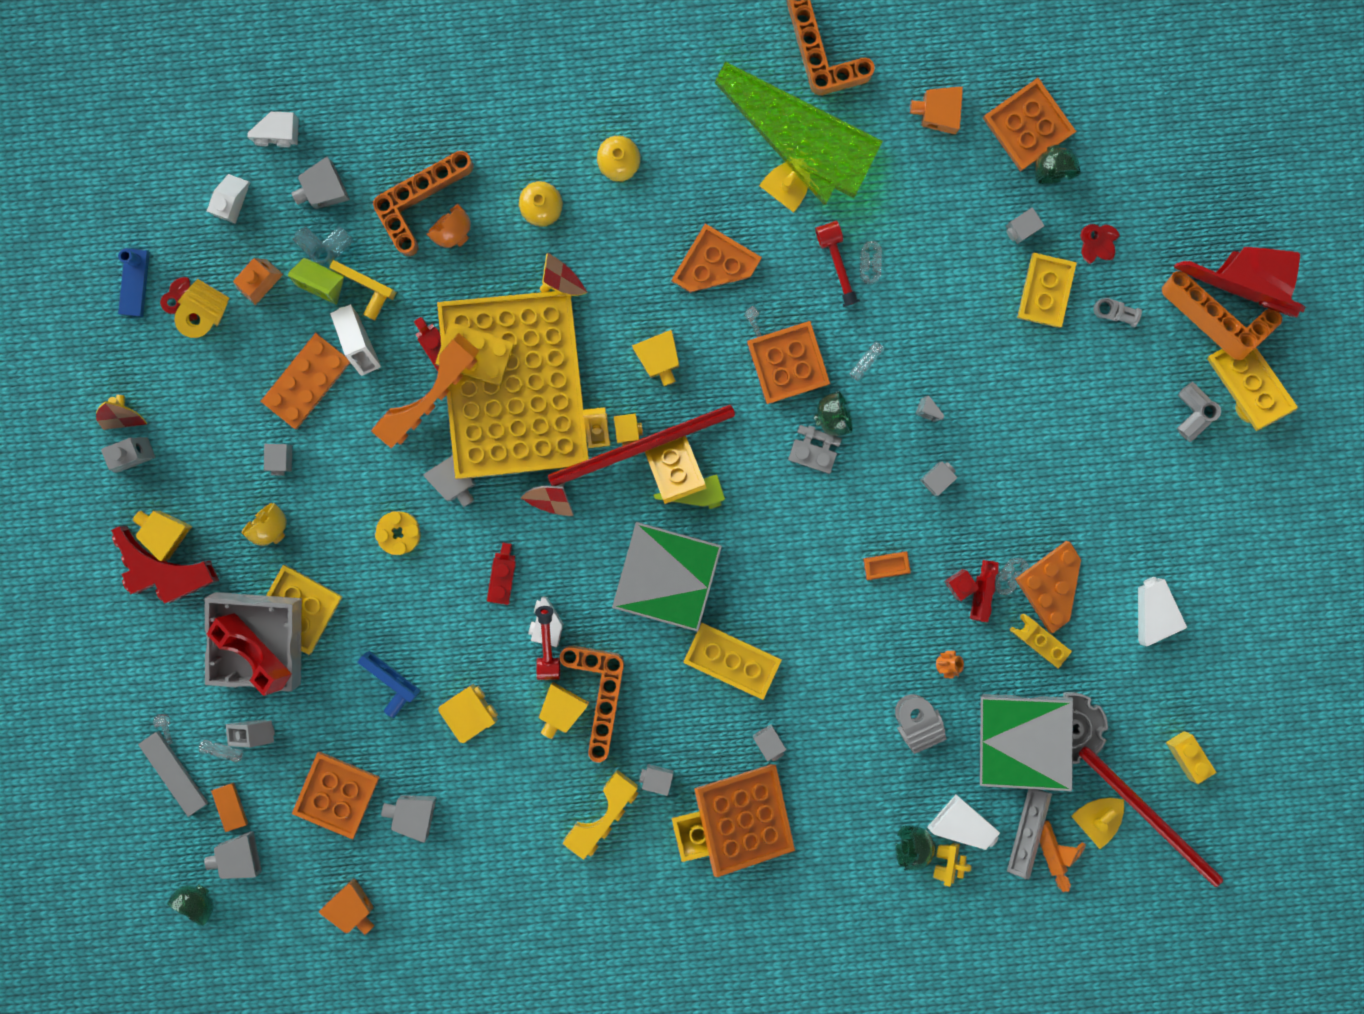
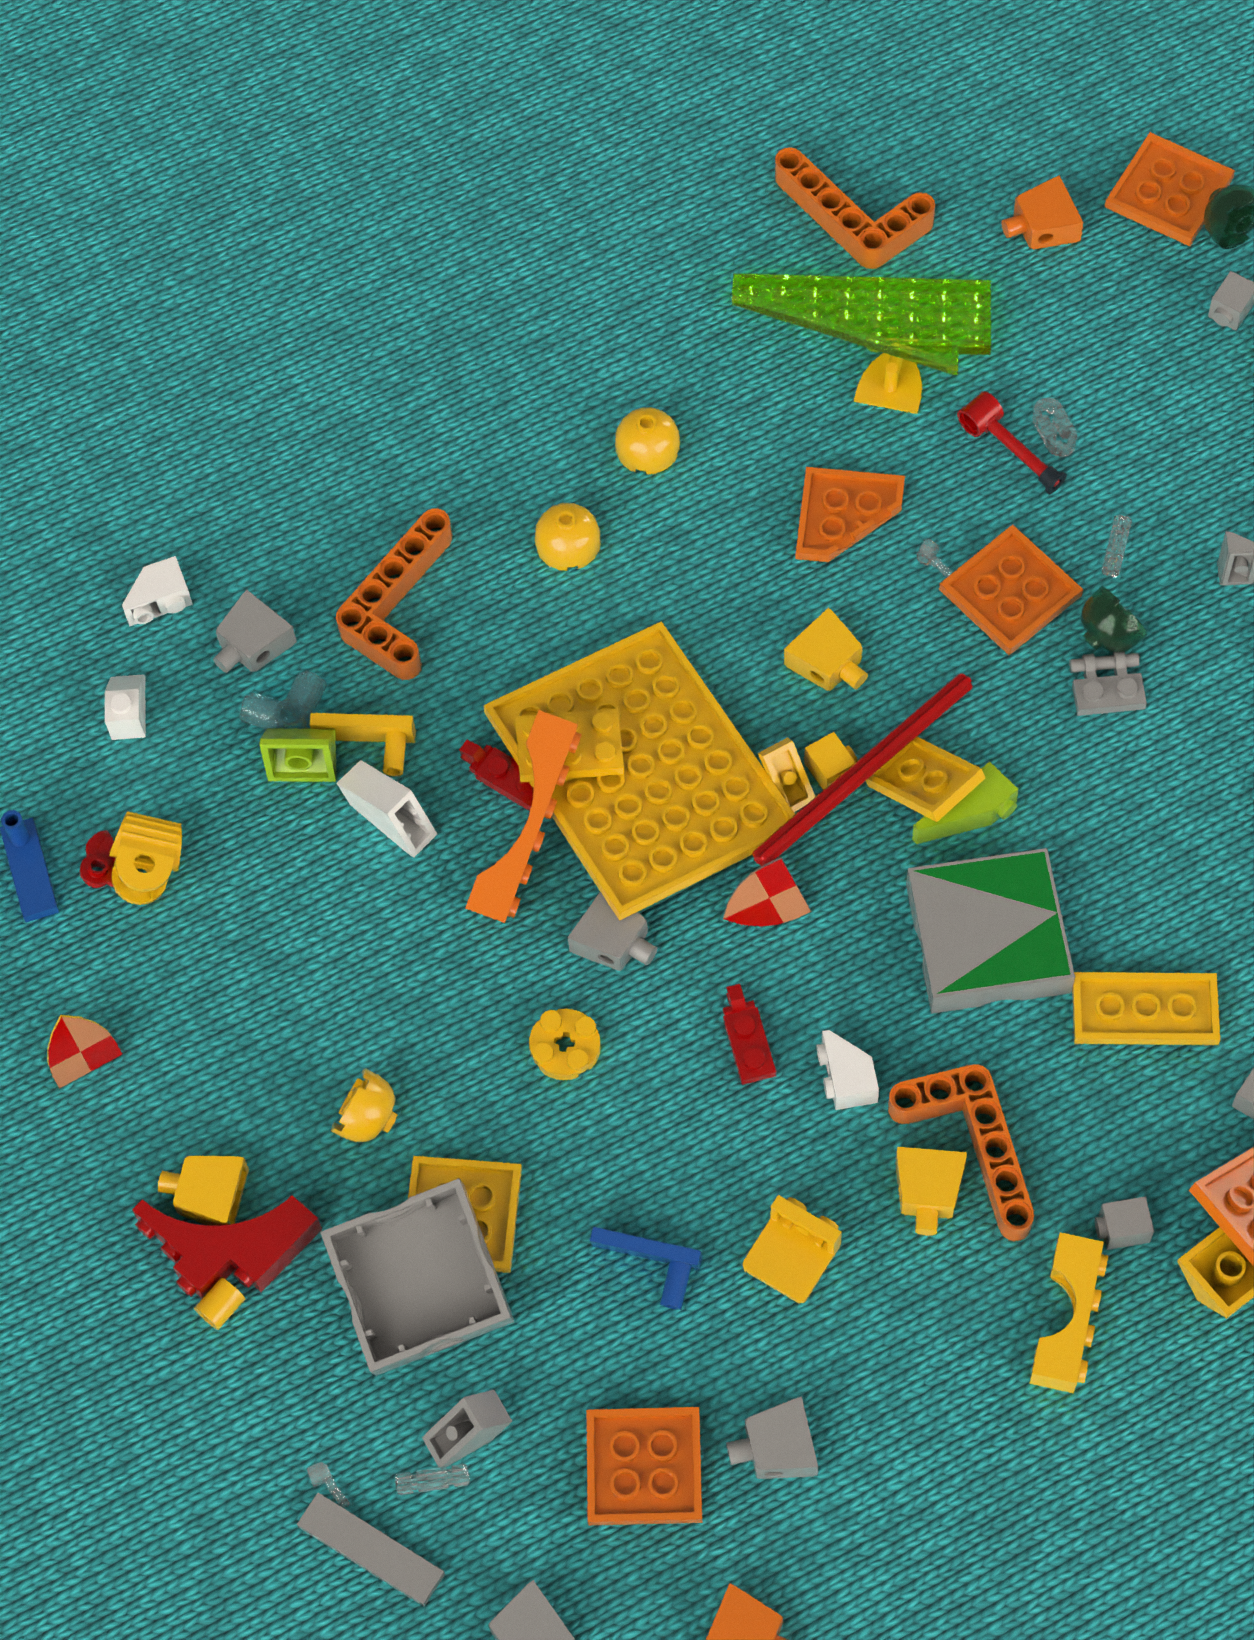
camera: 20 degrees left, 25 degrees down
(125, 455) = (110, 1098): light grey torso -> none
(143, 602) = (219, 1303): none -> yellow piece
(229, 807) = (483, 1562): orange tile -> none
(234, 635) = (422, 1281): red arch -> none
(257, 279) = (211, 781): orange torso -> none
(277, 458) = (341, 1011): light grey brick -> none
(305, 381) = (336, 896): orange plate -> none
(451, 228) = (459, 611): orange cylinder -> none
(547, 667) = (880, 1130): red piece -> none
(560, 278) = (640, 614): shield -> none

